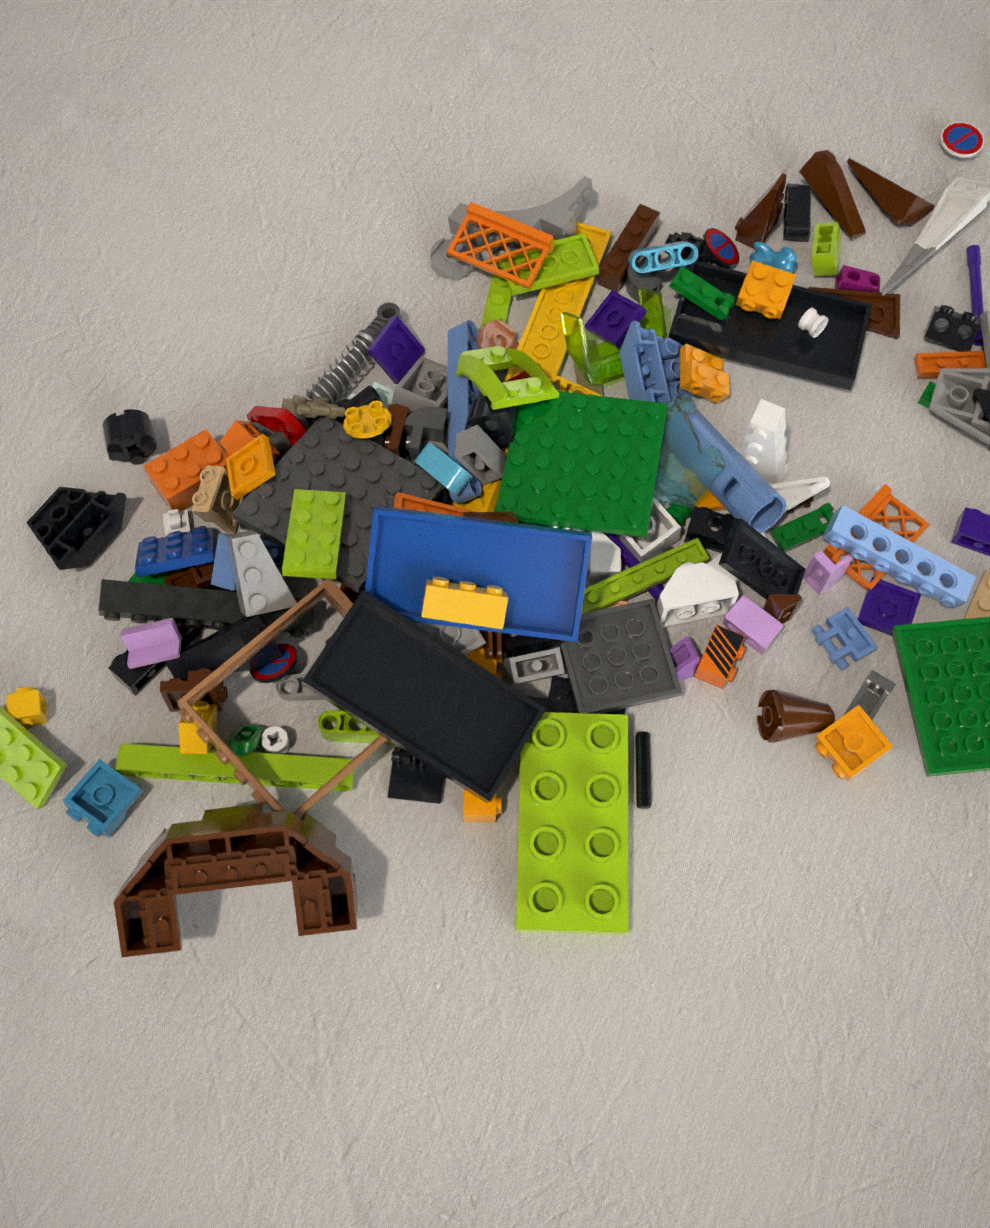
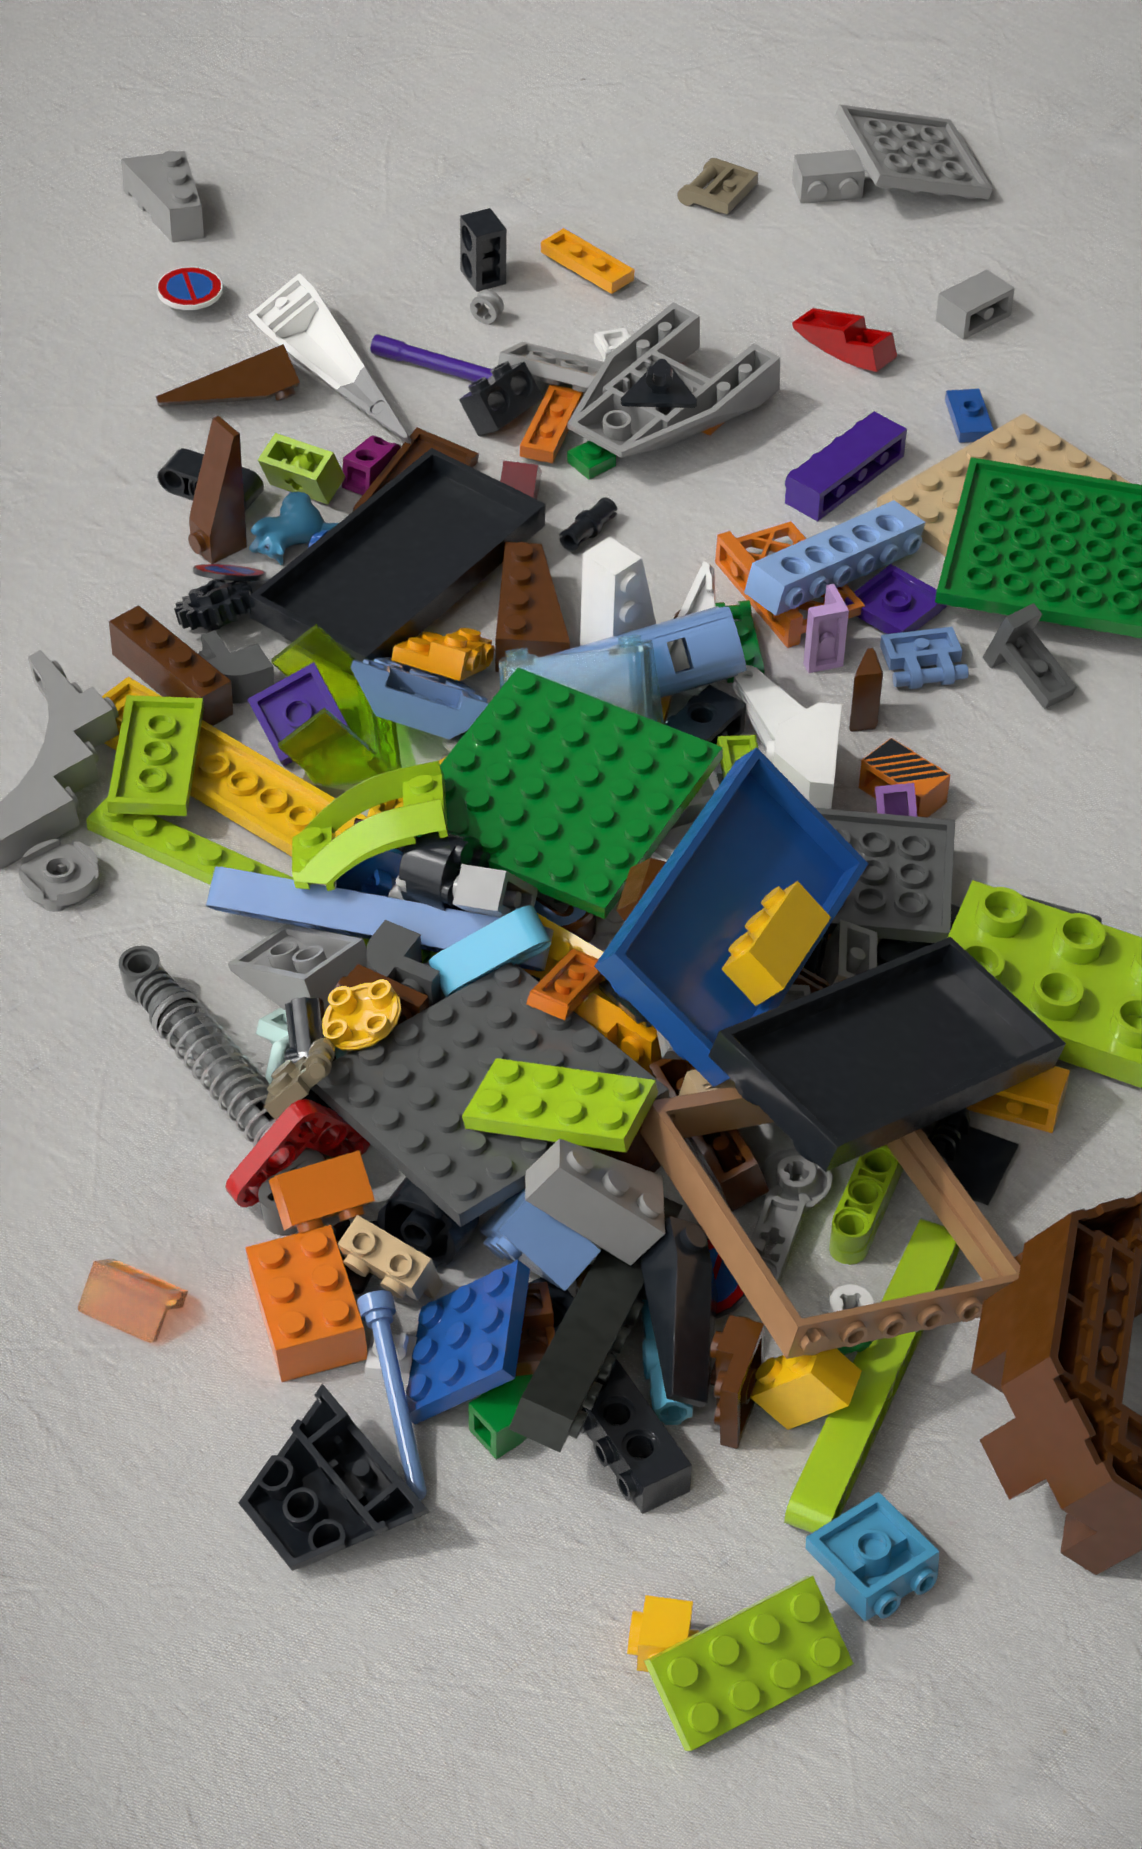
camera: 70 degrees left, 20 degrees down
(129, 436) = (200, 1363): black brick -> none
(152, 642) = (640, 1397): lavender panel -> none
(177, 394) = (129, 1298): none -> clear orange panel
(180, 503) = (377, 1311): none -> medium blue piece
(250, 466) = (379, 1175): light orange plate -> none
(395, 349) = (213, 977): dark purple plate -> none
(496, 334) = (260, 858): nougat tile -> none
(504, 227) = (79, 766): orange fence -> none
(674, 257) = (235, 616): medium azure beam -> none
(702, 293) = (317, 602): green plate -> none
(739, 405) = (528, 605): none -> reddish brown wedge
(753, 623) = (871, 725): lavender panel -> none
(760, 562) = (795, 678): black plate -> none
(765, 290) = (352, 536): light orange plate -> none
(791, 716) = (1023, 741): reddish brown cone -> none
(813, 322) = (436, 506): white wheel -> none
(830, 185) = (183, 424): reddish brown wedge -> none
(852, 743) = (1085, 692): light orange plate -> none
(868, 413) = (588, 524): none -> black pin
(882, 365) = (522, 477): none -> dark red brick

